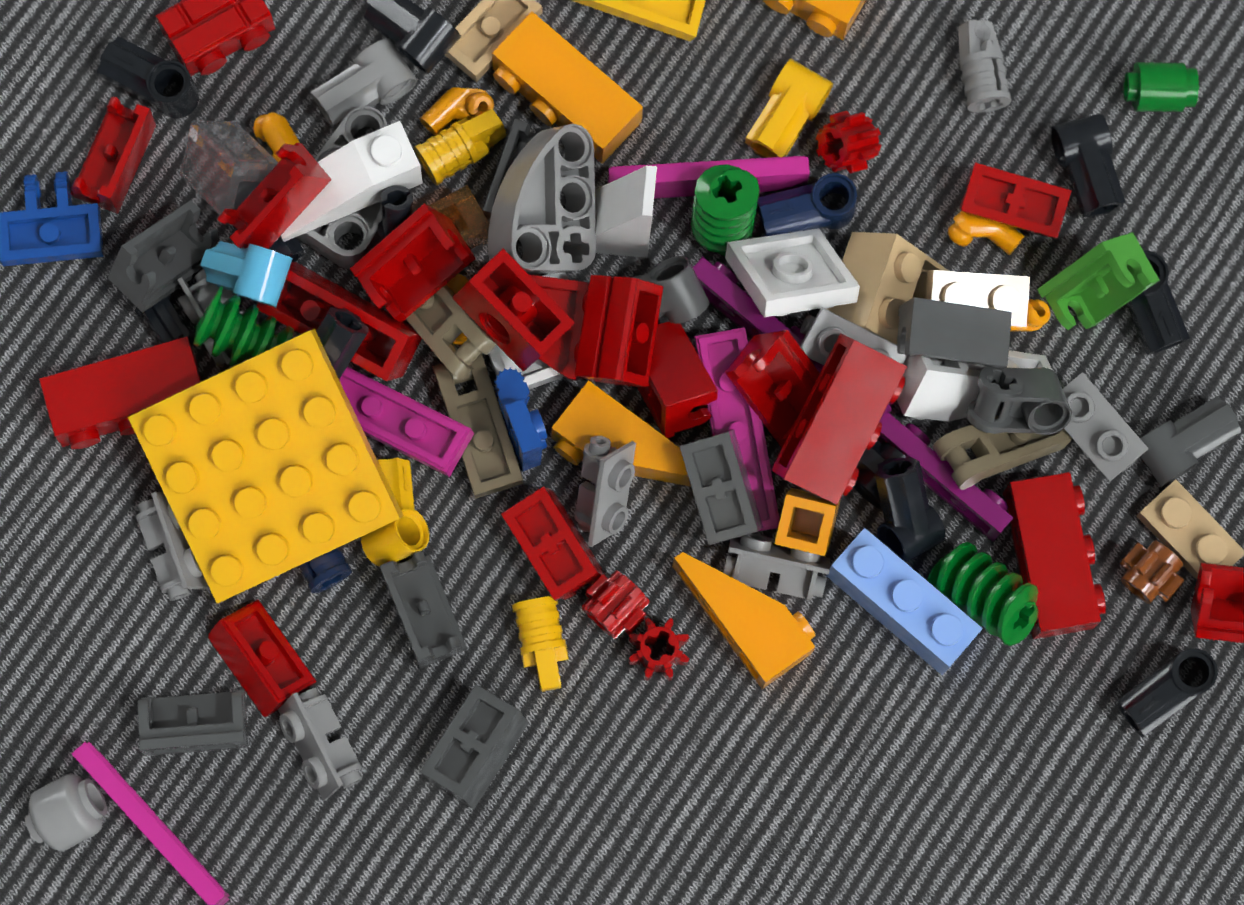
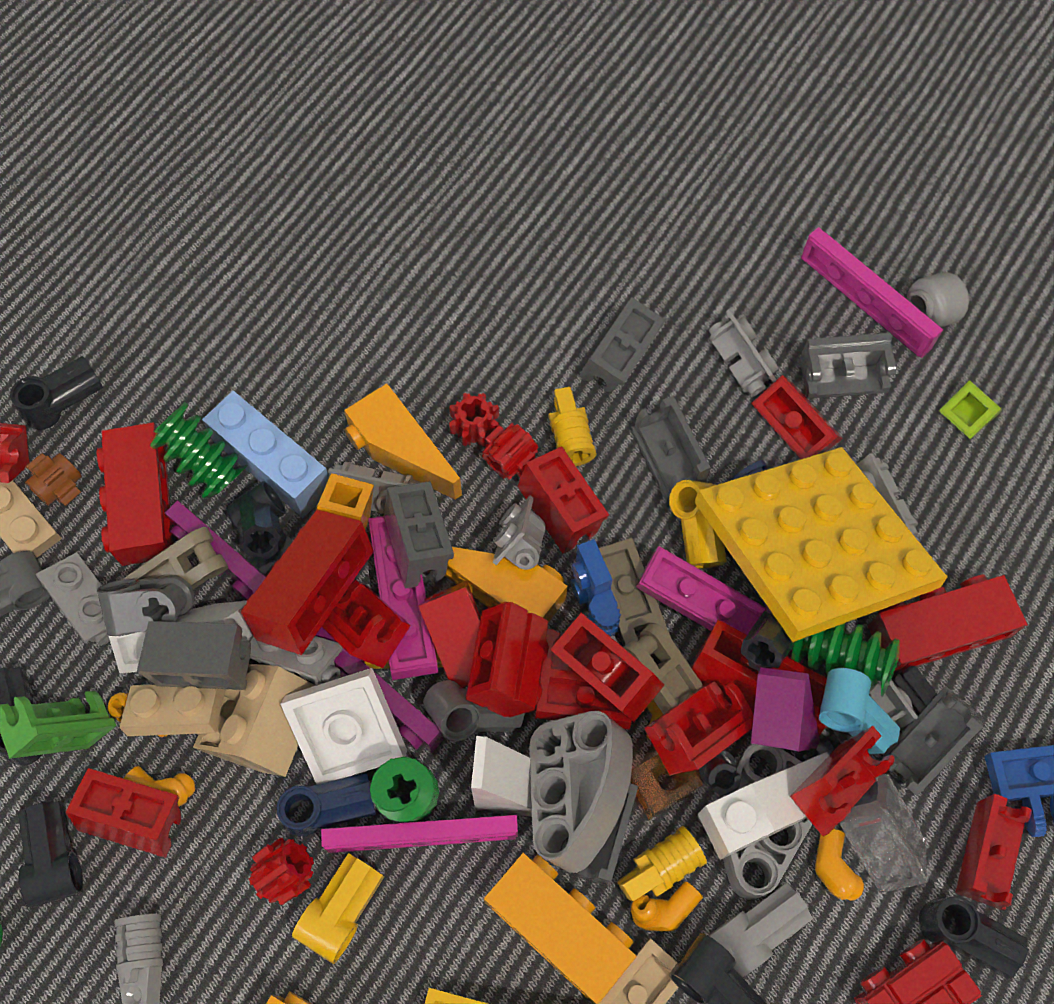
camera: 175 degrees left, 10 degrees down
(43, 670) = (970, 410): none -> lime slope
(328, 262) = (784, 711): none -> magenta slope

